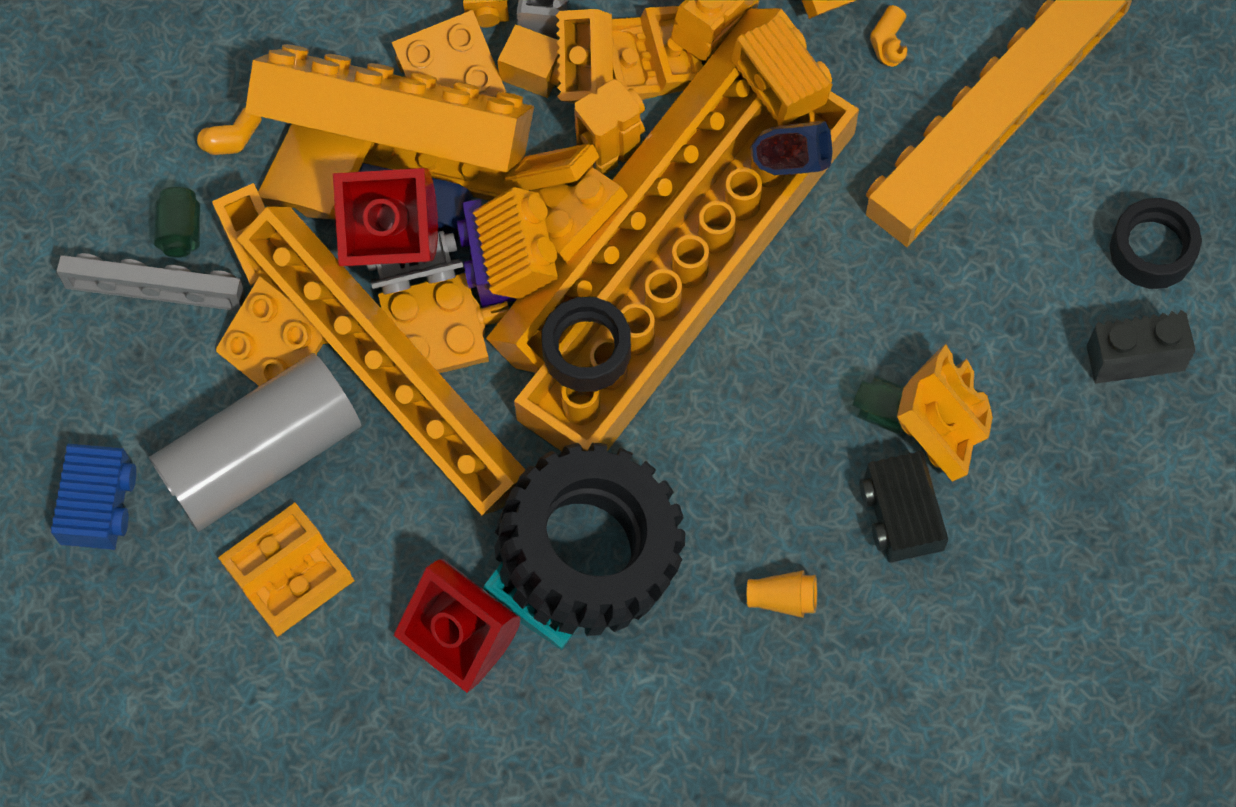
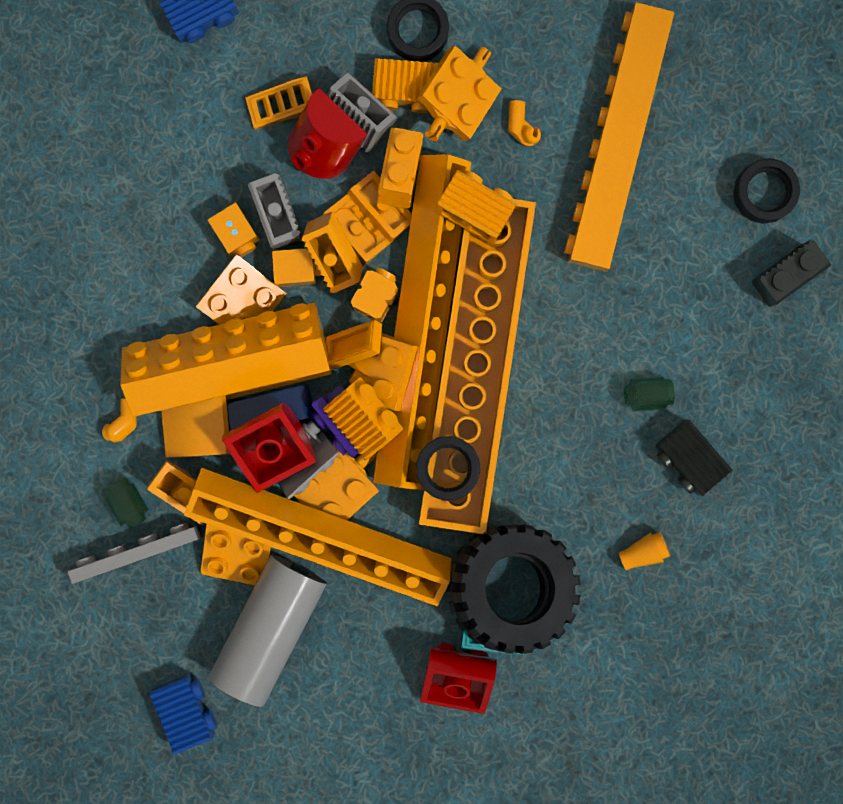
camera: 25 degrees left, 20 degrees up
(286, 569) = (329, 693): light orange slope -> none
(793, 148) = (512, 261): rock -> none
(945, 412) = (690, 383): light orange plate -> none

